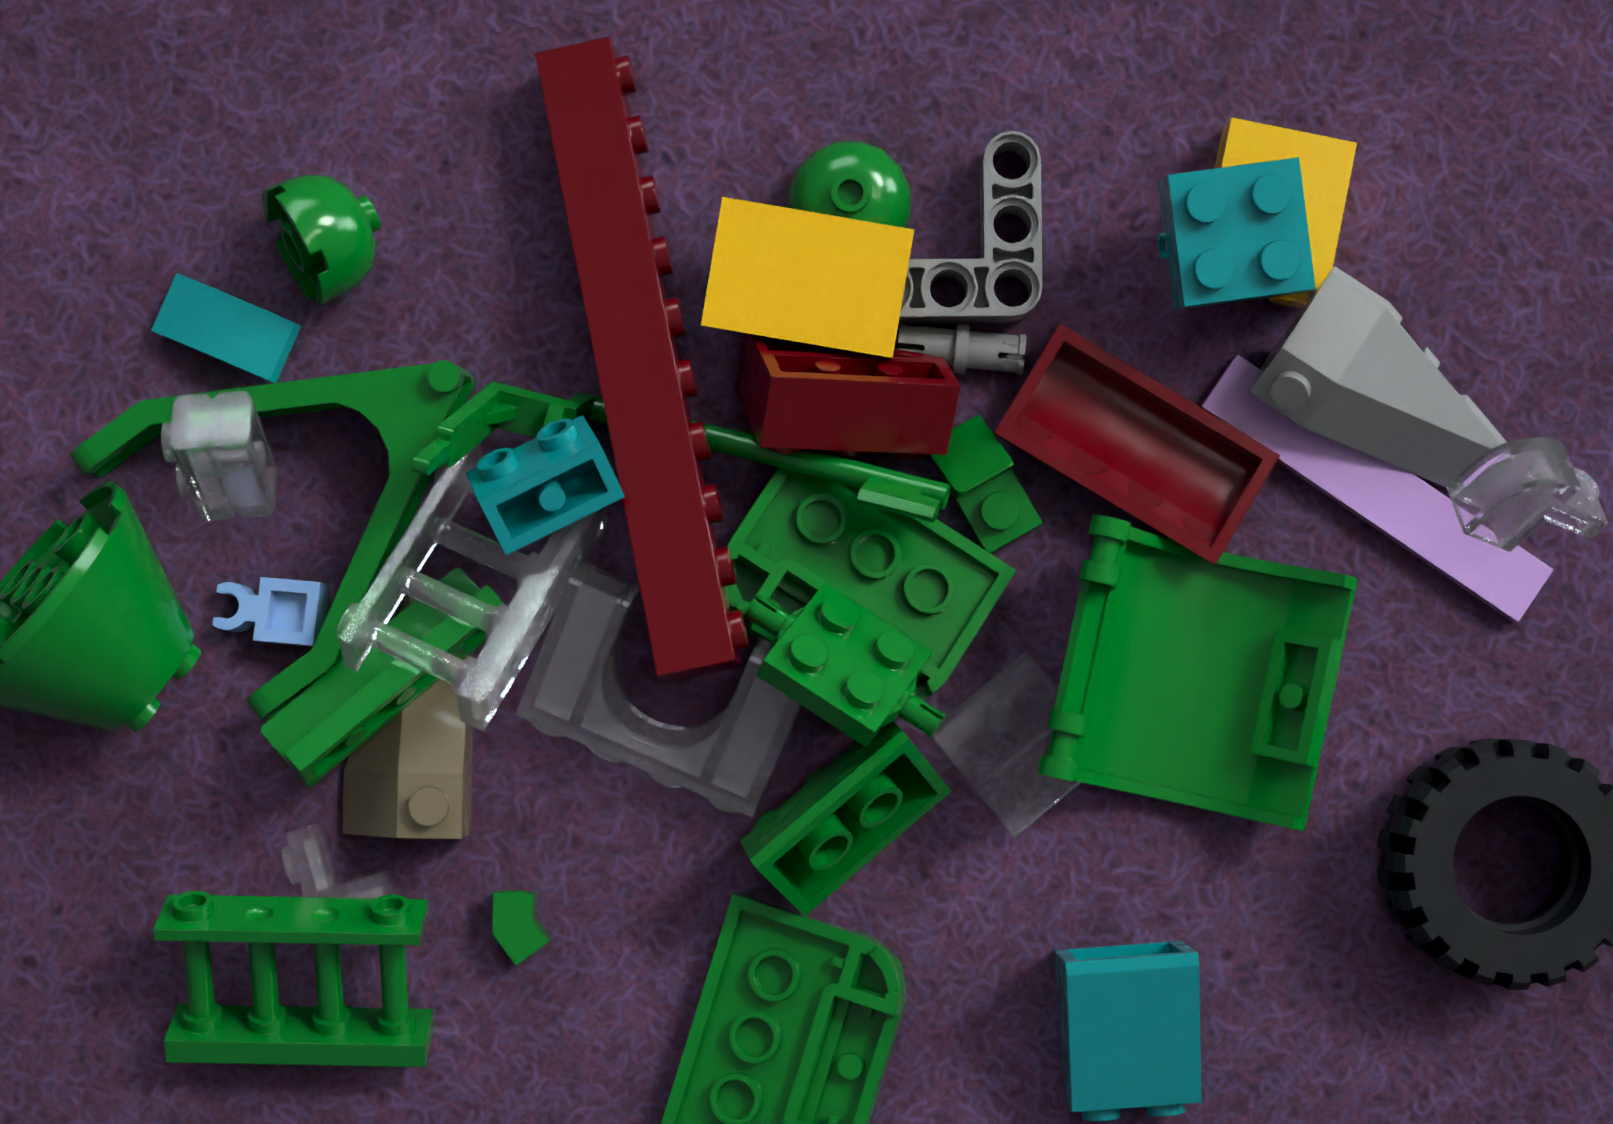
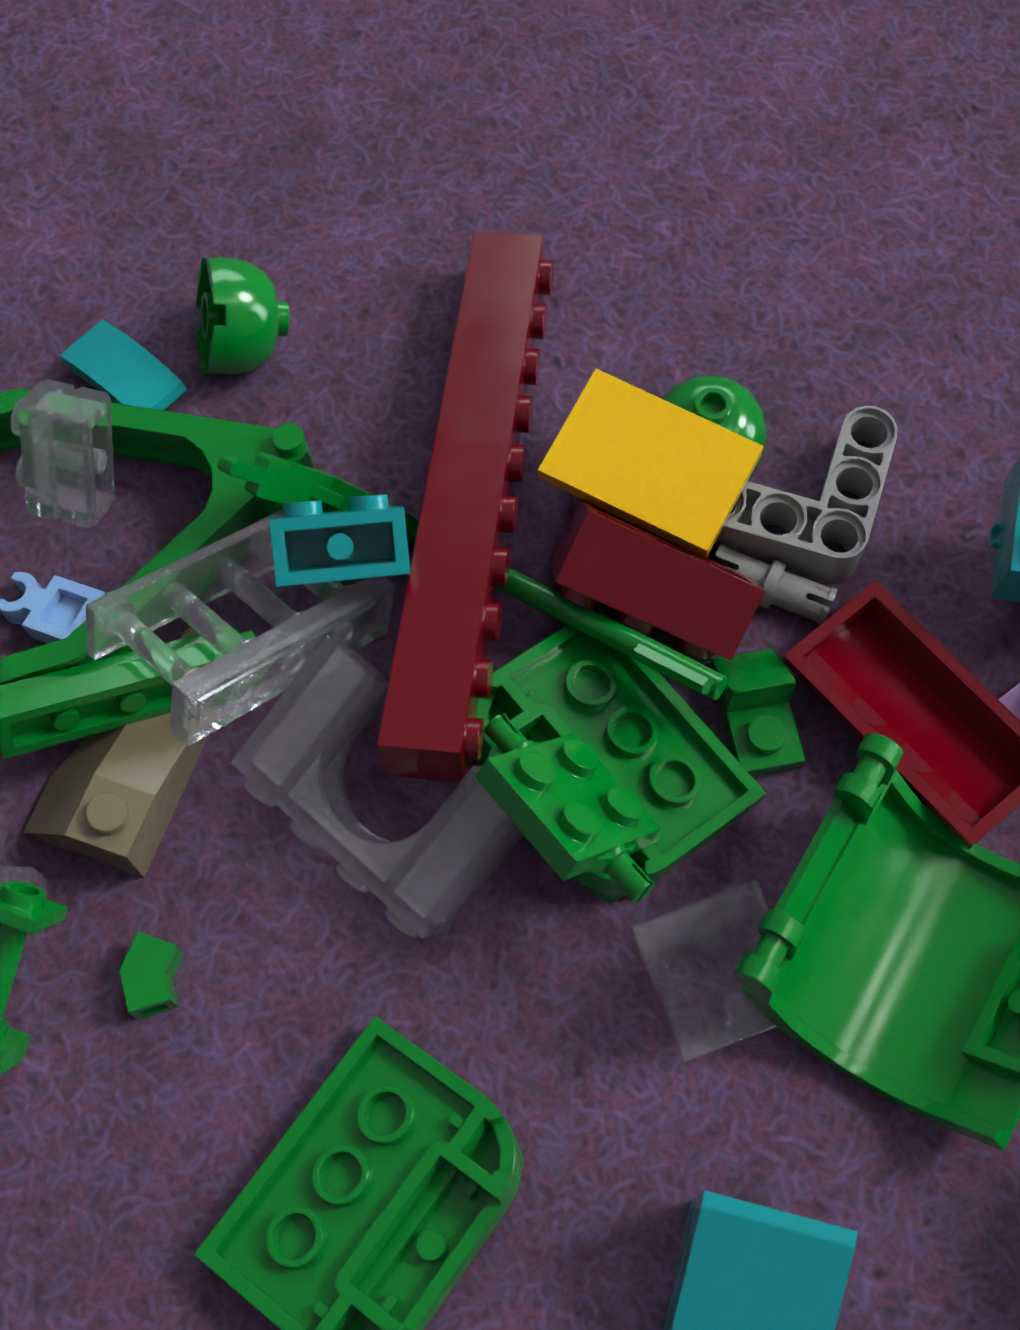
camera: 20 degrees right, 20 degrees down
(843, 817) = (520, 969): green slope -> none

